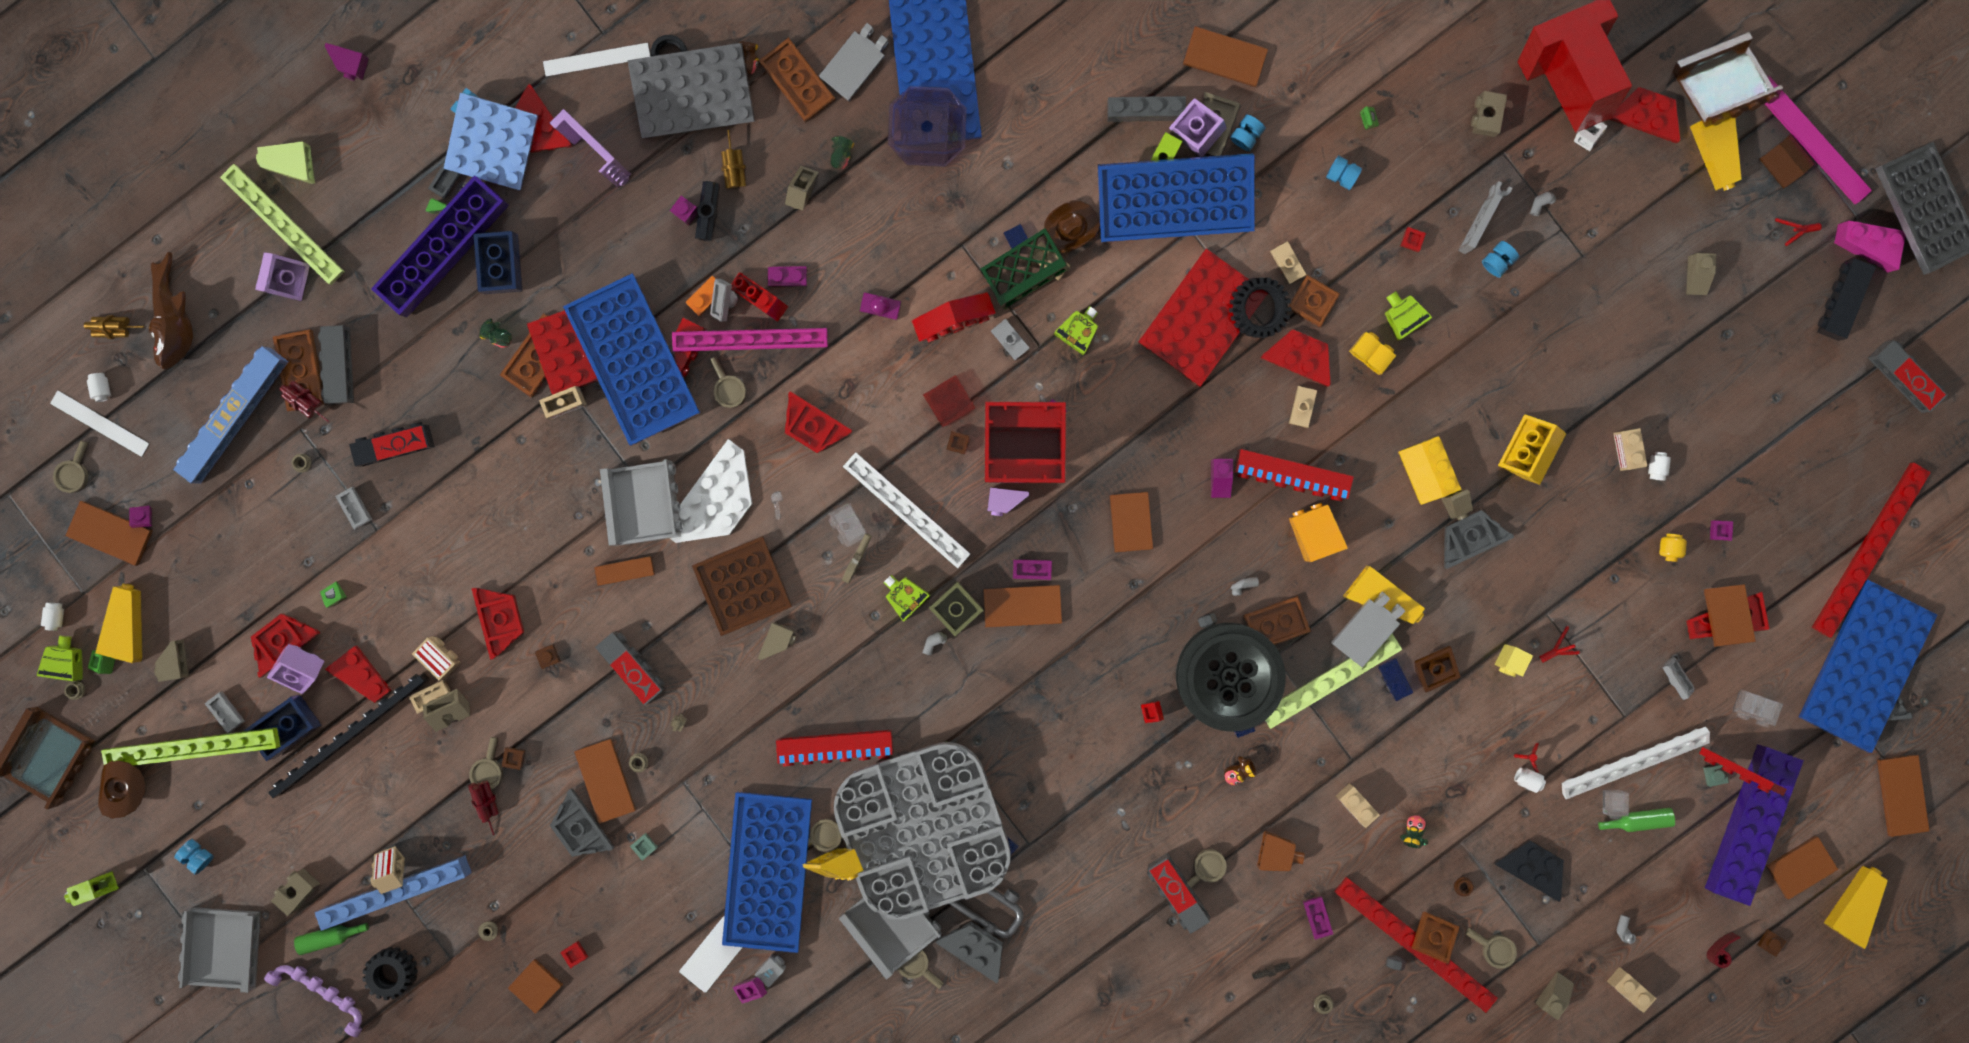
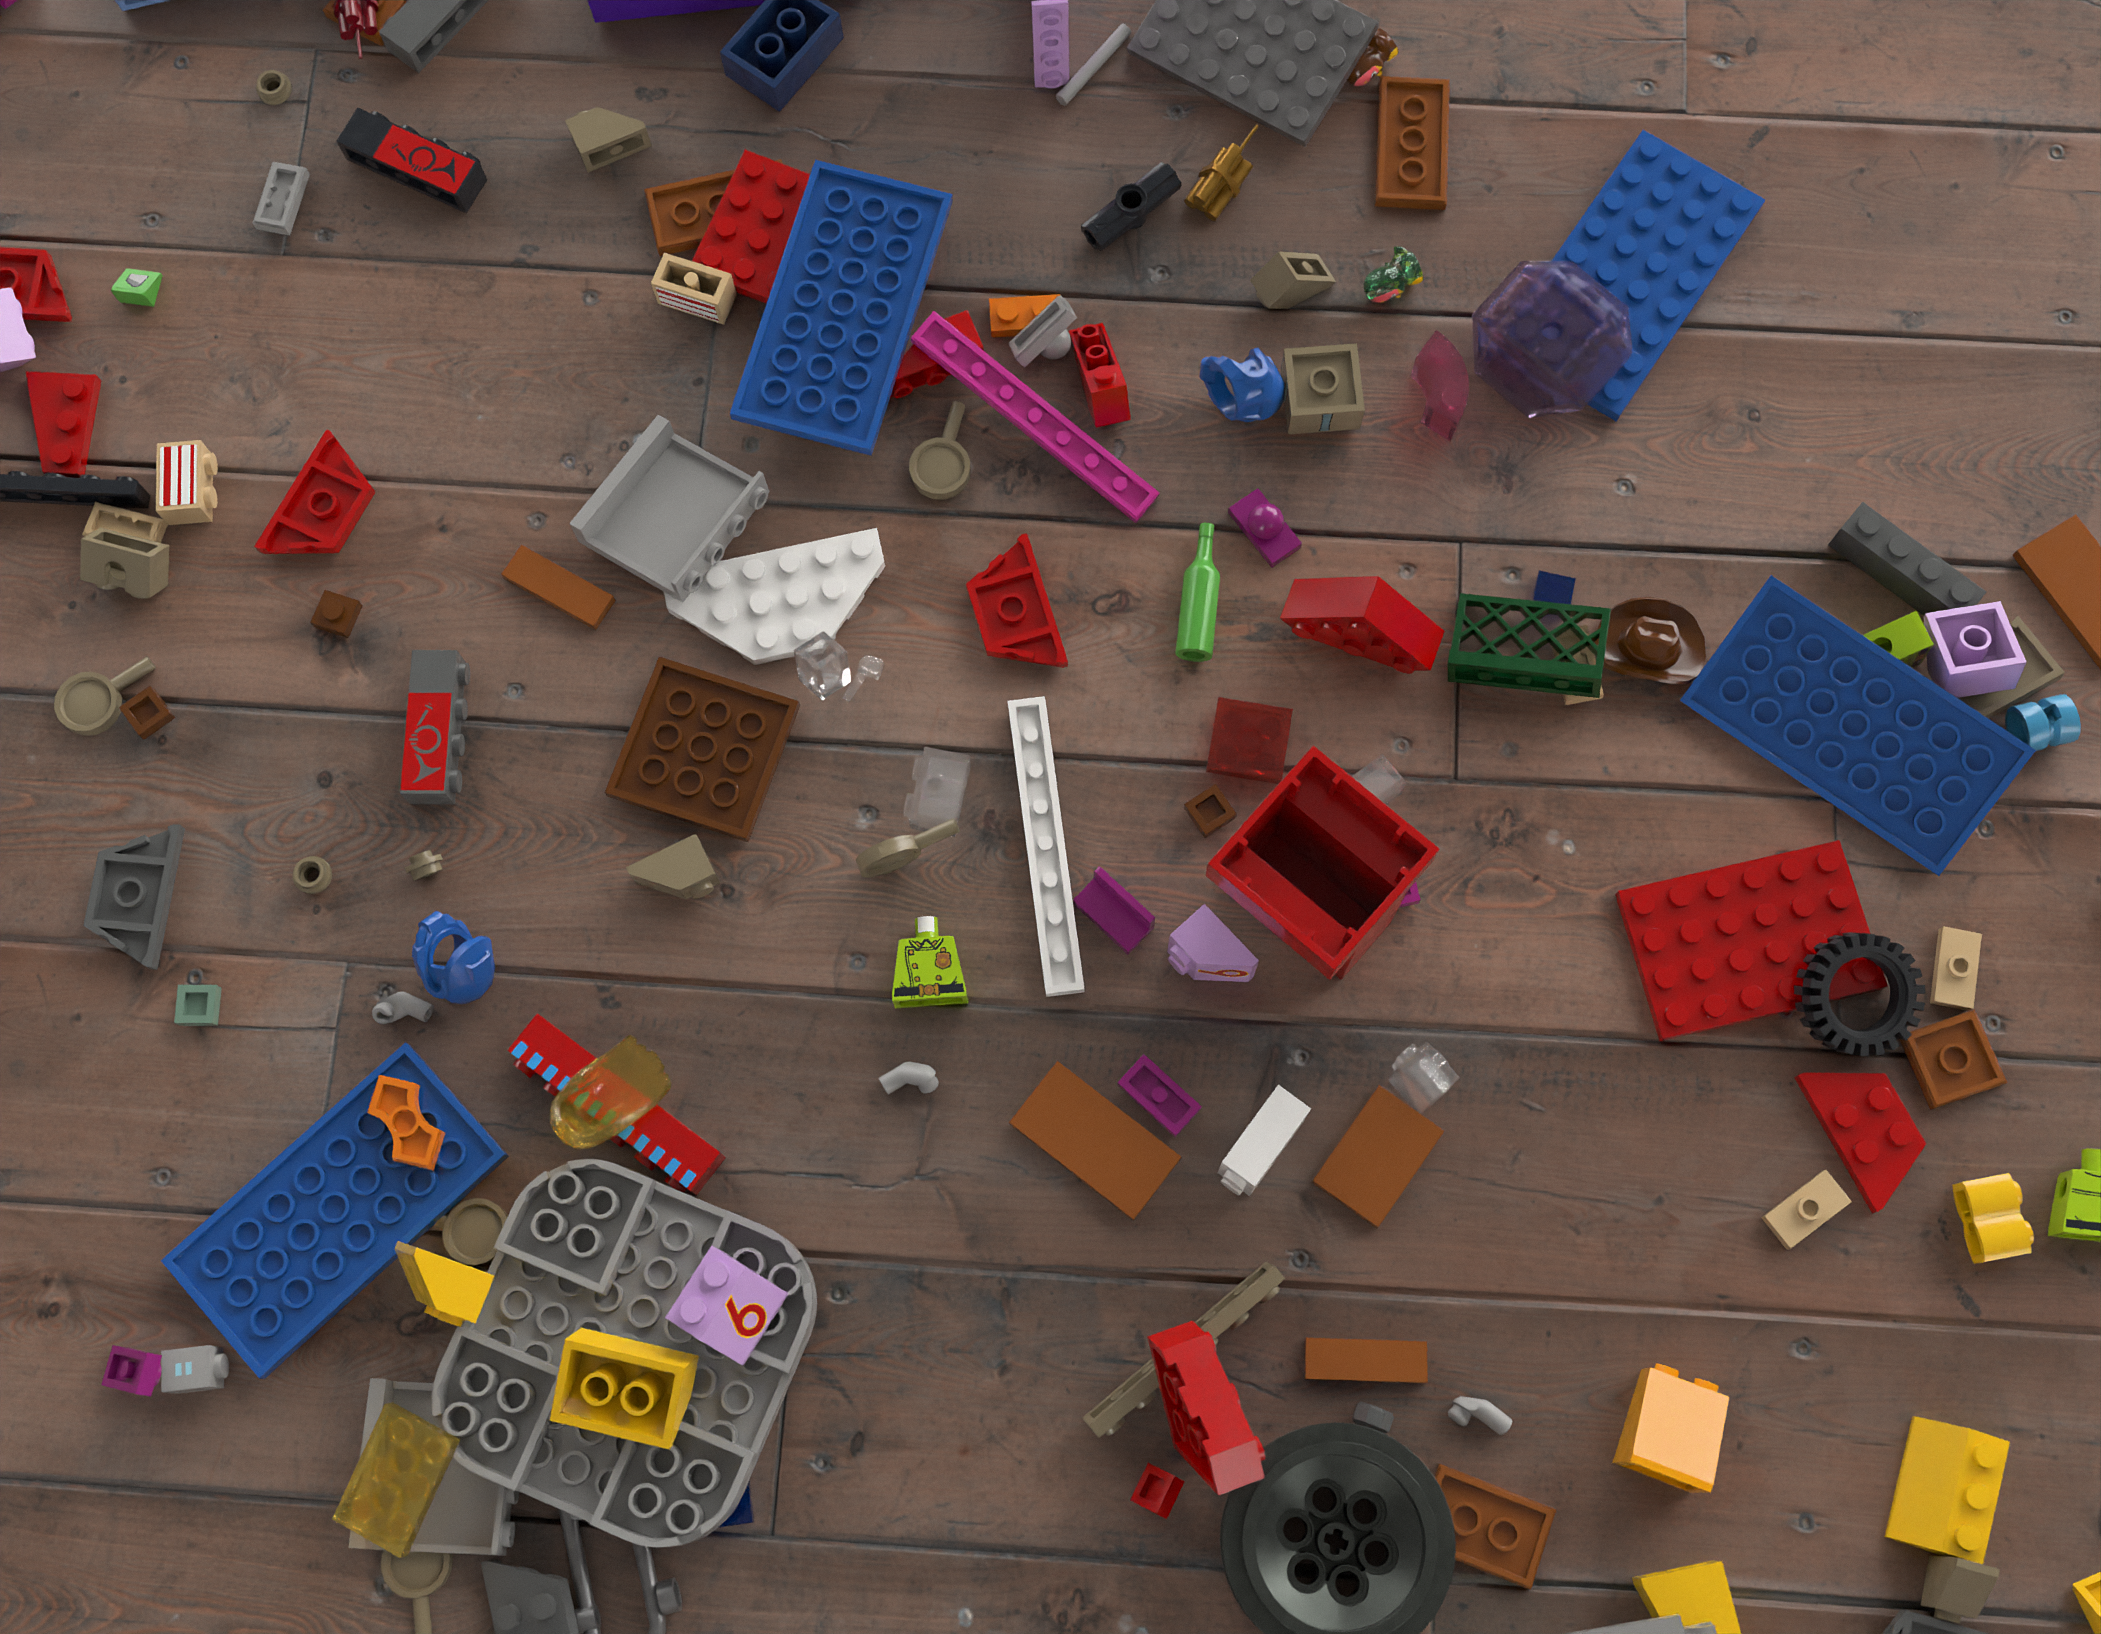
camera: 40 degrees right, 15 degrees down
(461, 367) = (606, 136): none -> dark tan slope
(483, 801) = (44, 736): dark red piece -> none
(497, 336) = (690, 131): clear green animal -> none
(605, 780) = (239, 860): dark orange tile -> none
(633, 156) = (1093, 64): none -> light grey bar
(684, 210) = (1099, 179): magenta brick -> none
(709, 959) = (121, 1271): white sticker -> none
(719, 780) = (399, 1006): none -> light grey arm
(732, 745) = (469, 968): none -> blue helmet
(758, 819) = (414, 1139): none -> orange tile
(759, 515) = (822, 665): none -> clear brick
(787, 276) = (1165, 381): magenta plate -> none
(826, 256) = (1255, 384): none -> blue helmet
(832, 748) = (608, 1095): none -> clear yellow hair
(854, 63) = (1516, 181): light grey tile -> none
(854, 228) = (1322, 388): none -> dark tan container
(881, 360) = (1199, 602): none -> bright green piece
(883, 944) = (396, 1479): none -> clear yellow plate
(901, 183) = (1444, 383): none -> clear pink brick
(935, 845) = (623, 1387): none -> yellow slope
(947, 786) = (726, 1305): none -> lavender slope
(955, 514) = (1115, 911): none -> magenta panel
(956, 608) = (989, 1051): olive brick -> none
(1010, 339) = (1419, 729): light grey plate -> none
(1012, 380) = (1381, 779): none -> clear brick
(1078, 330) = (1537, 798): lime torso -> none
(1086, 556) = (1262, 1141): none -> white brick
(1119, 661) = (1228, 1312): none -> dark tan plate
(1124, 480) = (1422, 1076): none -> clear brick
(1146, 672) = (1204, 1409): none -> red brick
(1187, 601) = (1365, 1360): none -> dark orange tile
(1221, 478) = (1583, 1208): magenta slope -> none
(1293, 474) = (1707, 1304): red brick -> none

